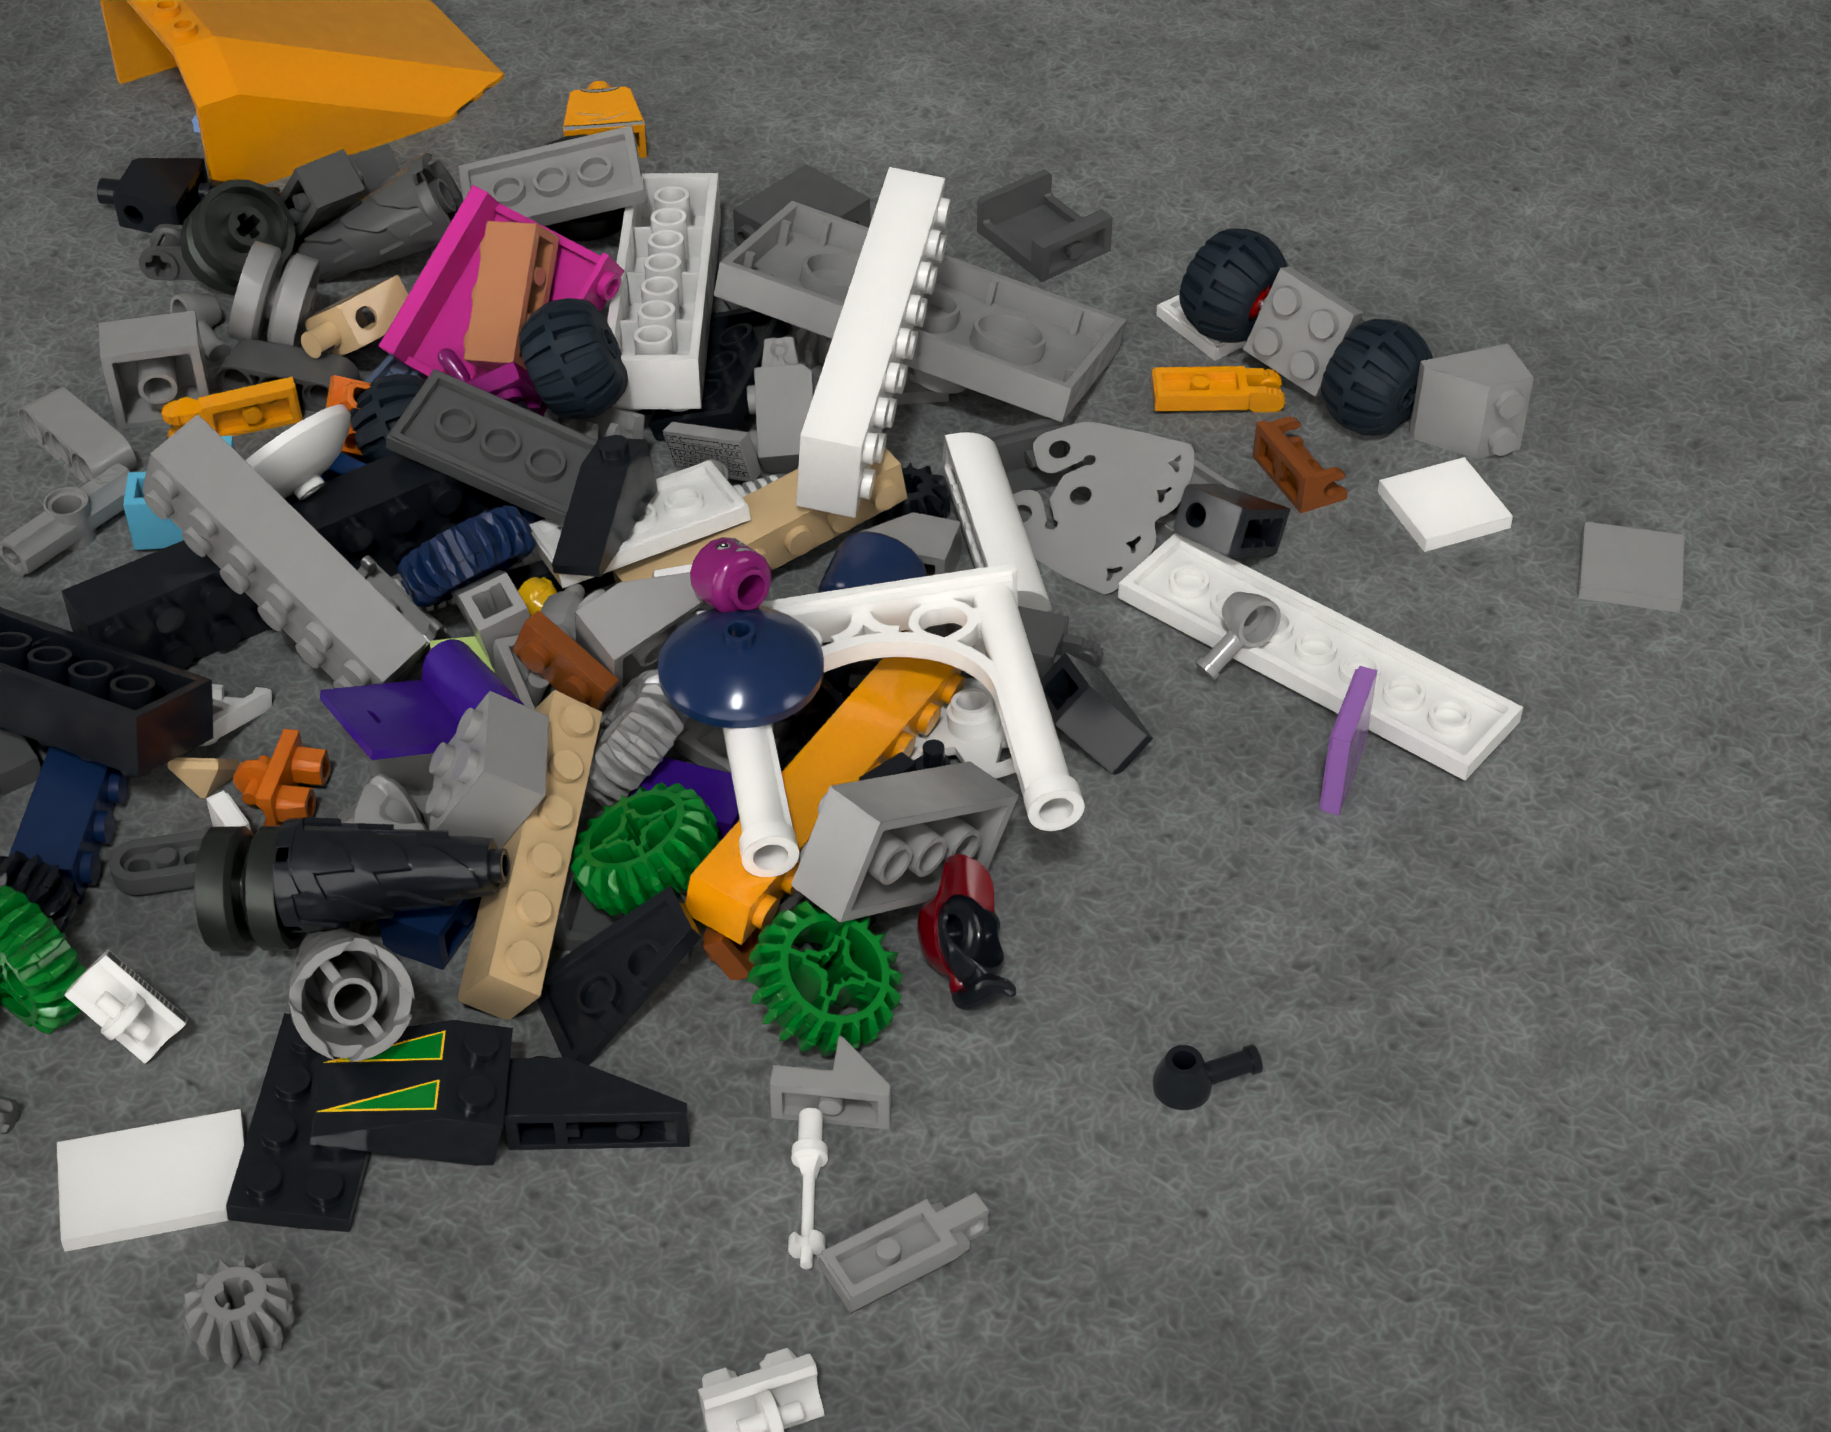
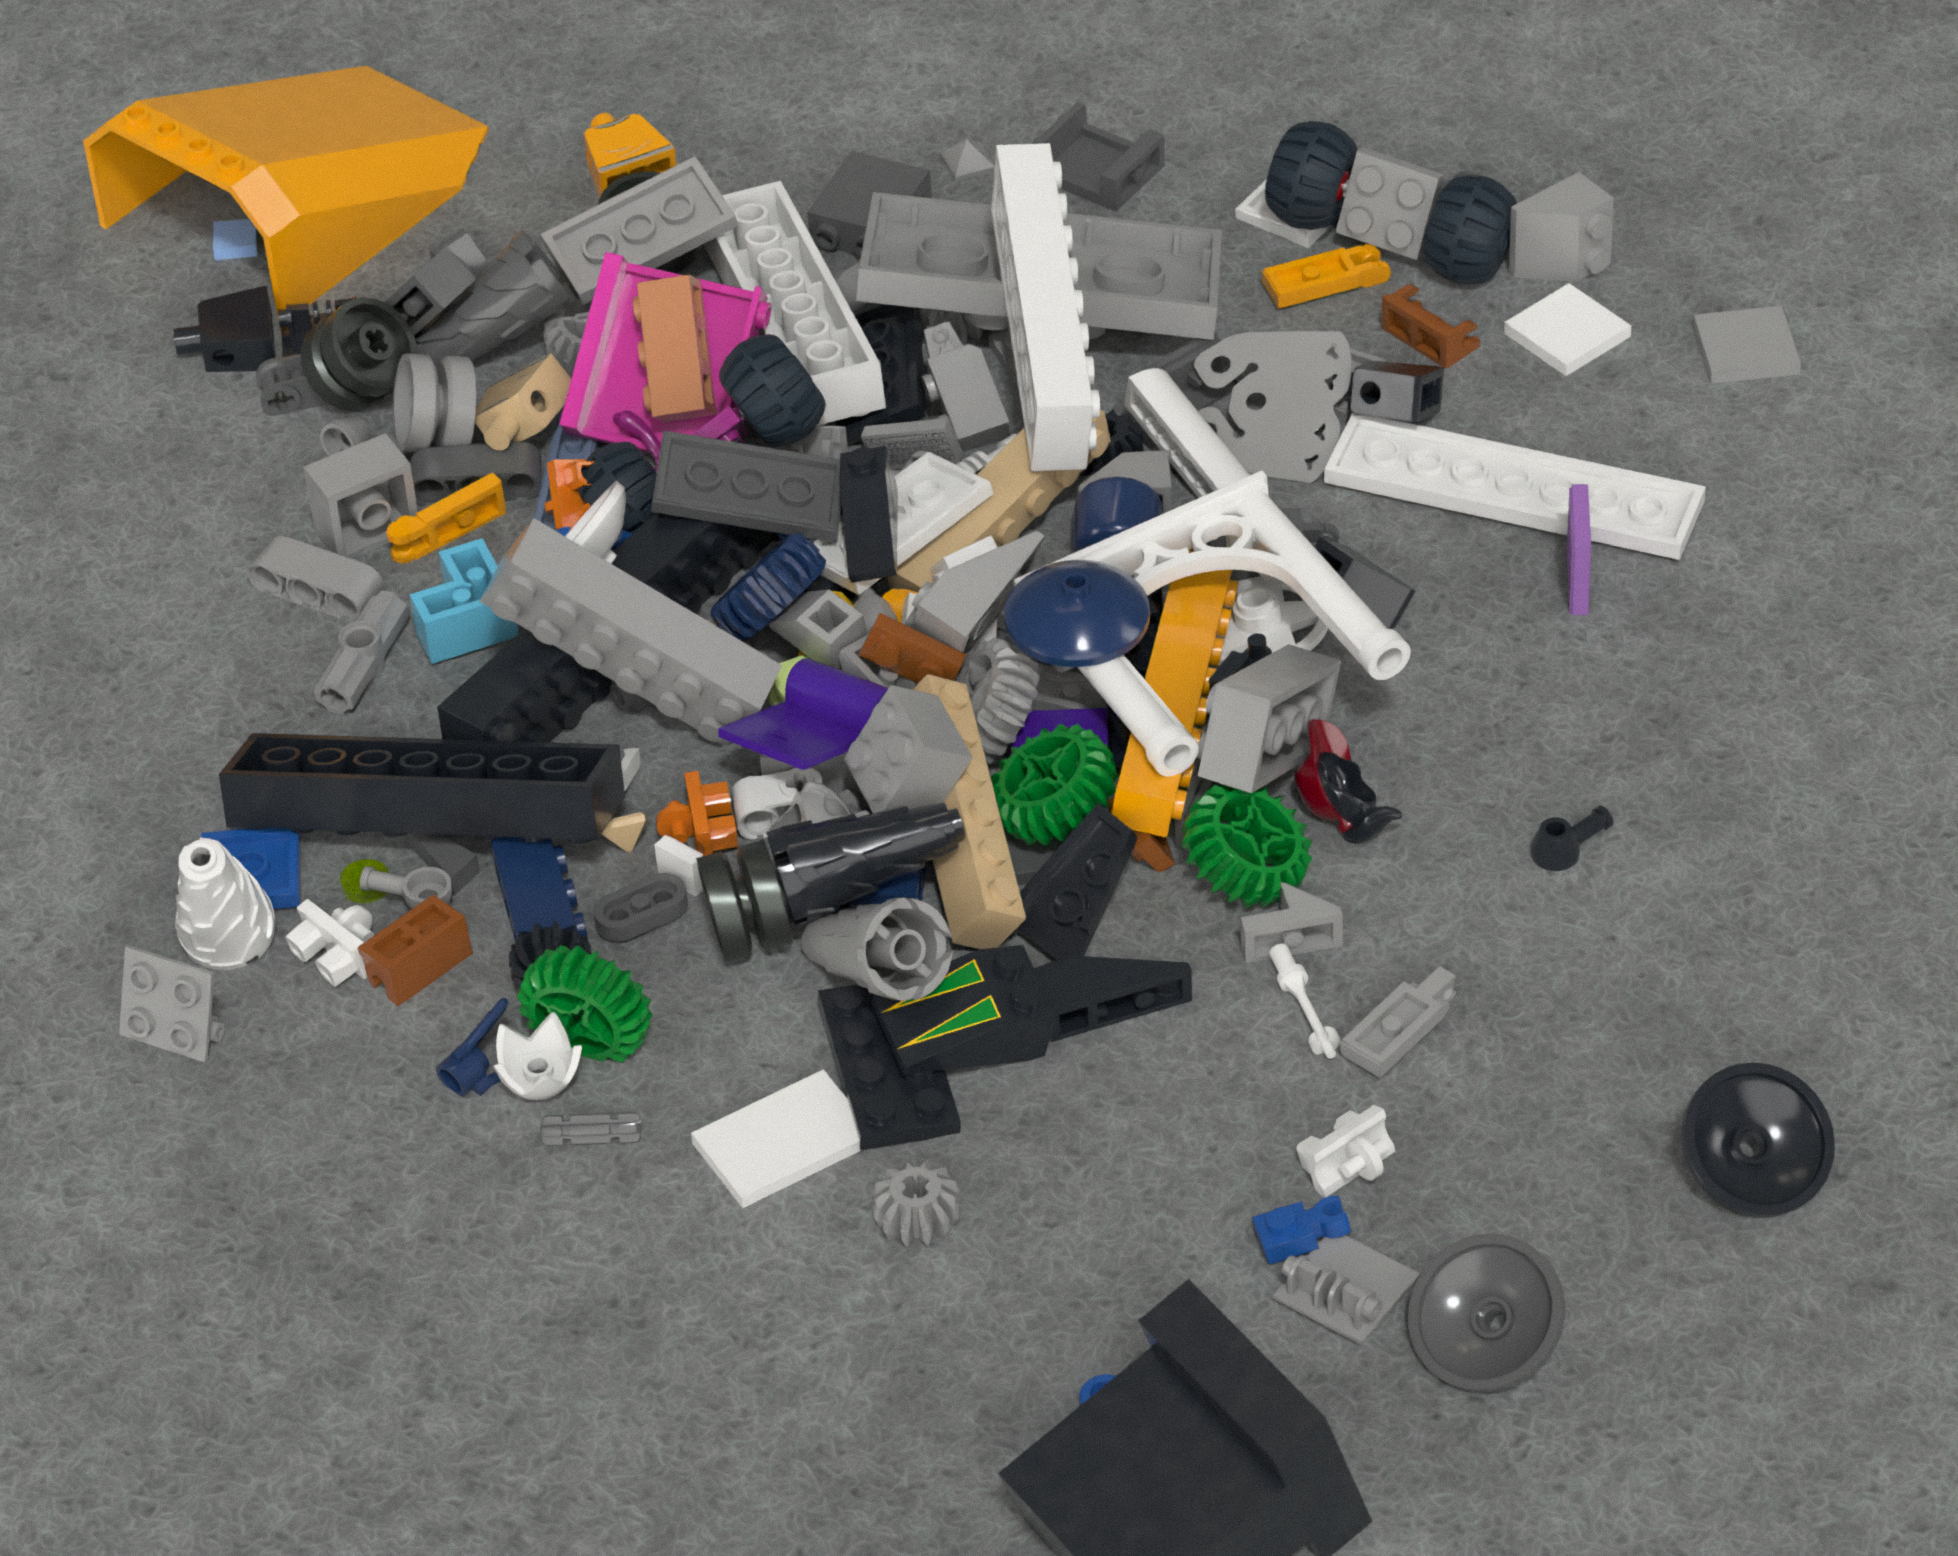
camera: 15 degrees left, 0 degrees up
(126, 1006) = (693, 1016): white hips -> none
(351, 771) = (765, 798): none -> white piece
(730, 575) = (1043, 540): magenta head -> none
(1250, 622) = (1456, 474): light grey bar -> none

